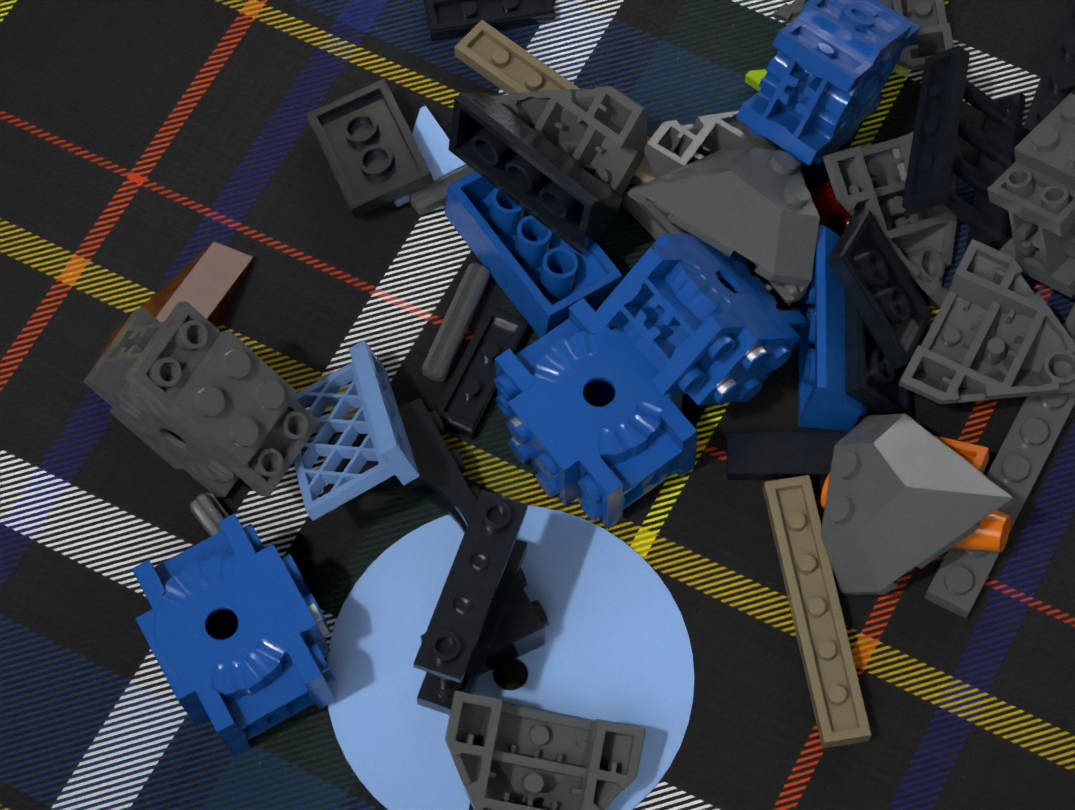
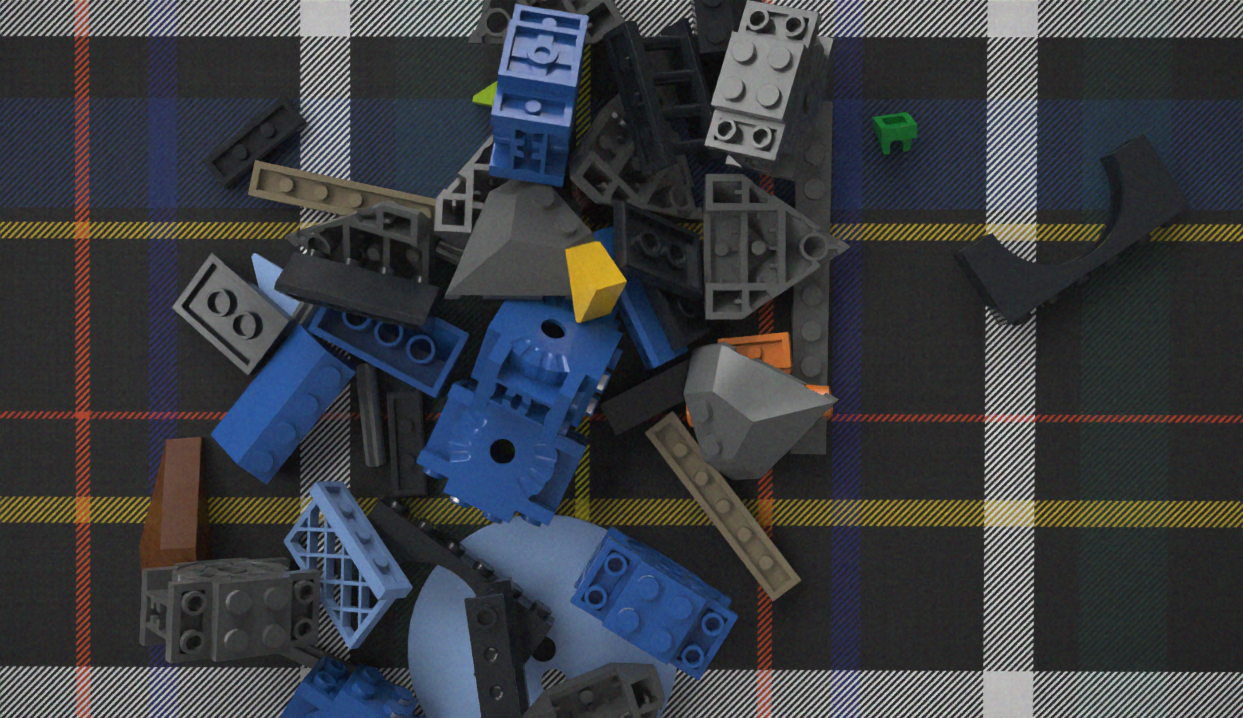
camera: 25 degrees left, 25 degrees up
(372, 258) = (283, 403): none -> blue slope
(685, 642) = (654, 603): none -> blue piece
(796, 264) = (593, 281): none -> yellow slope

